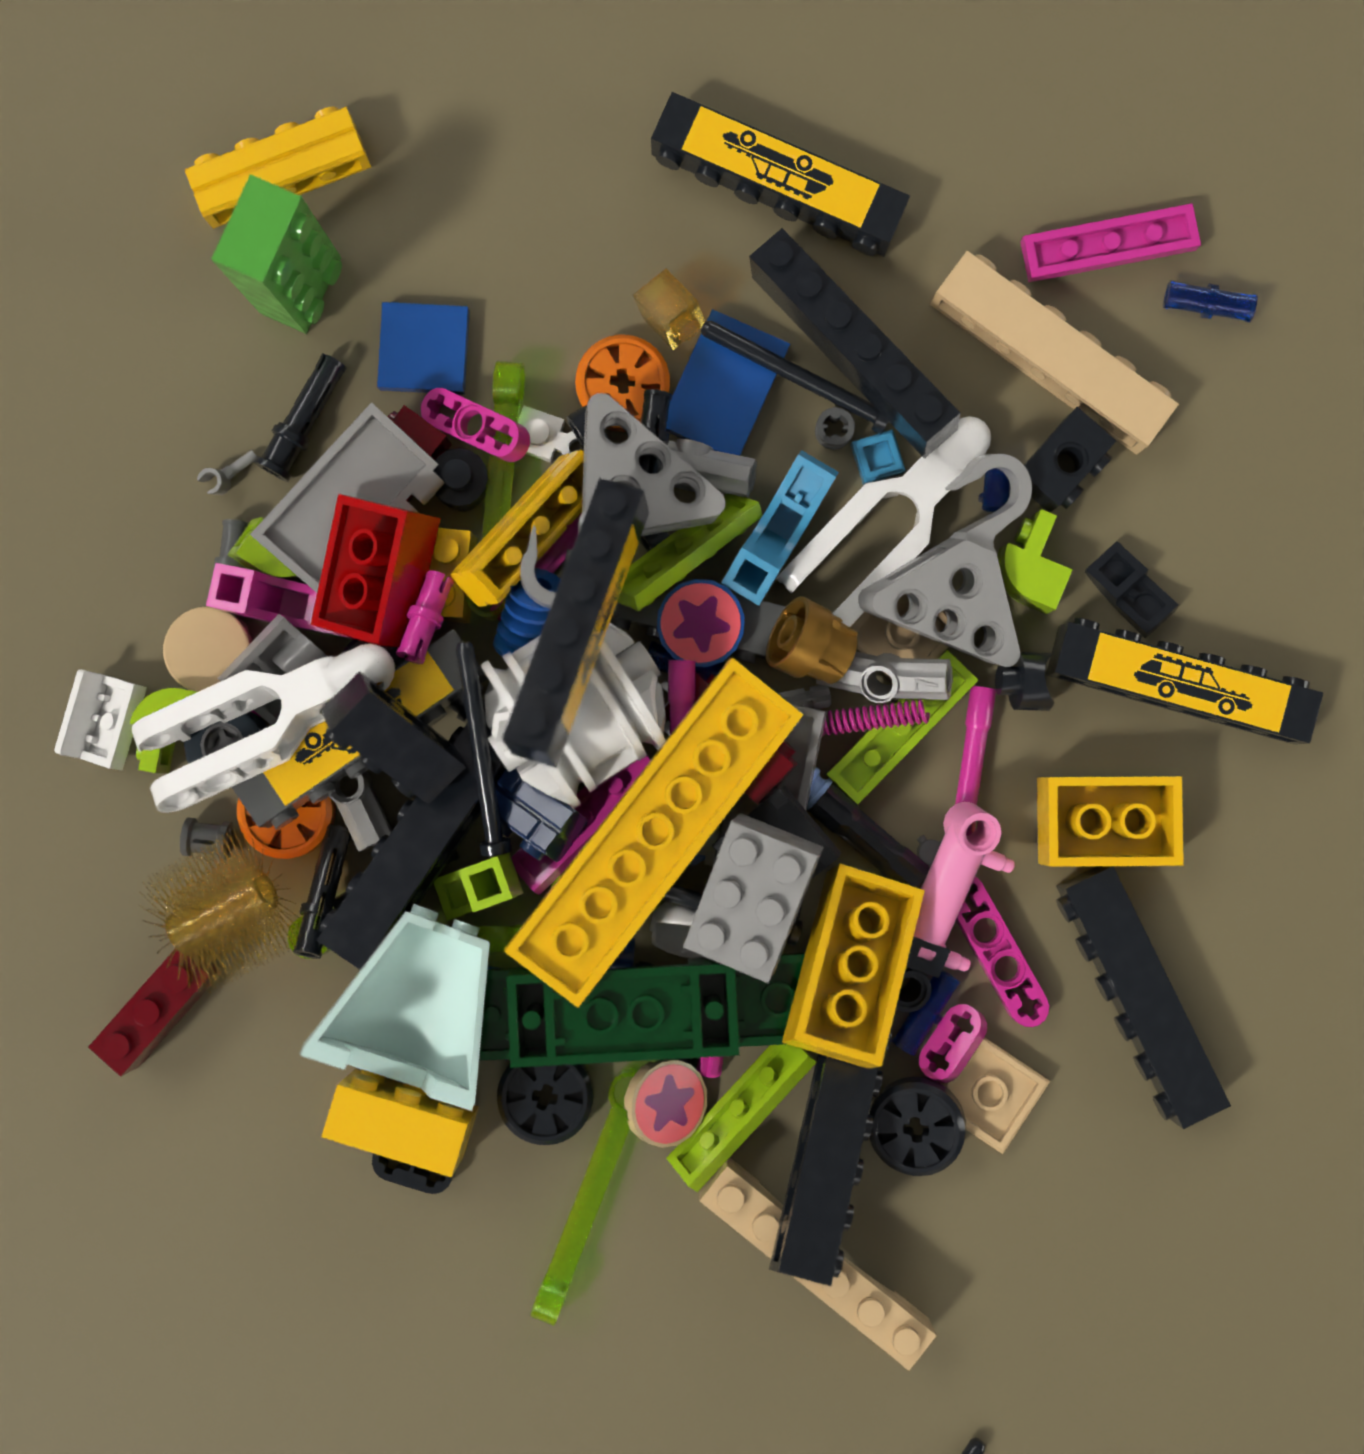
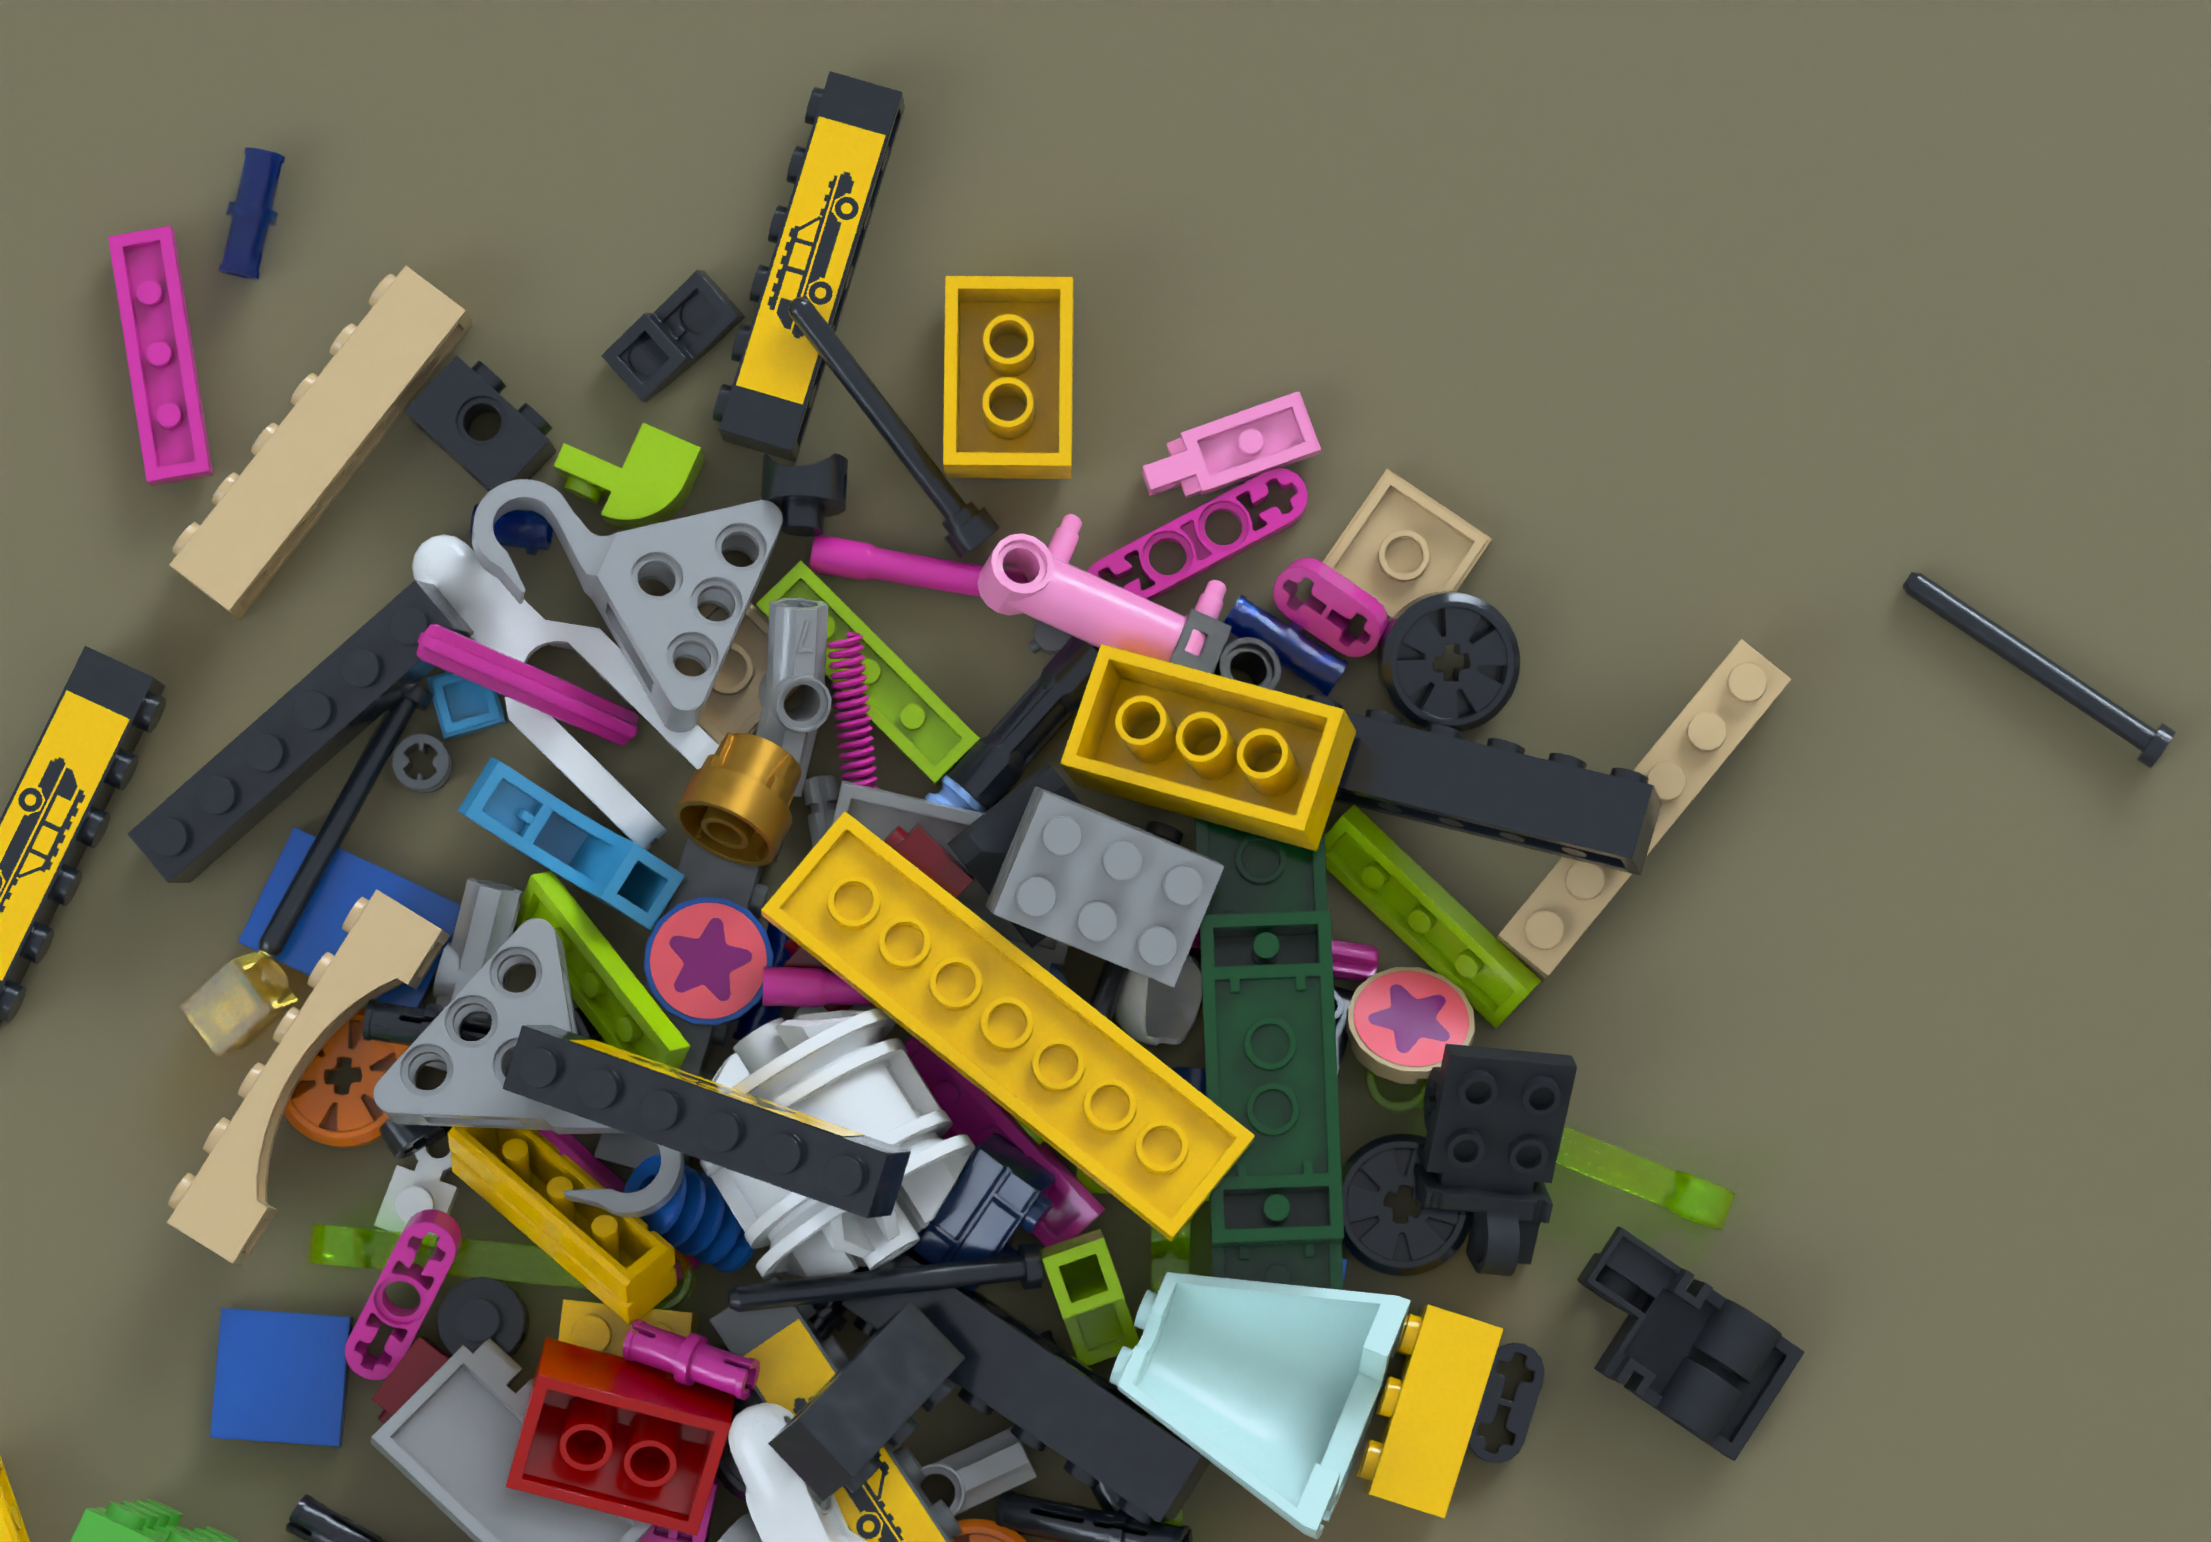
camera: 90 degrees left, 5 degrees down
(451, 1292) = (1688, 1349): none -> black plate
(535, 305) = (228, 1197): none -> tan arch
(583, 1161) = (1493, 1145): none -> black plate
(889, 492) = (527, 684): none -> dark pink axle
(1007, 790) = (964, 522): none -> black piece
(1062, 976) = (1235, 448): none -> bright pink hinge
(1142, 995) = (1262, 336): black brick -> none

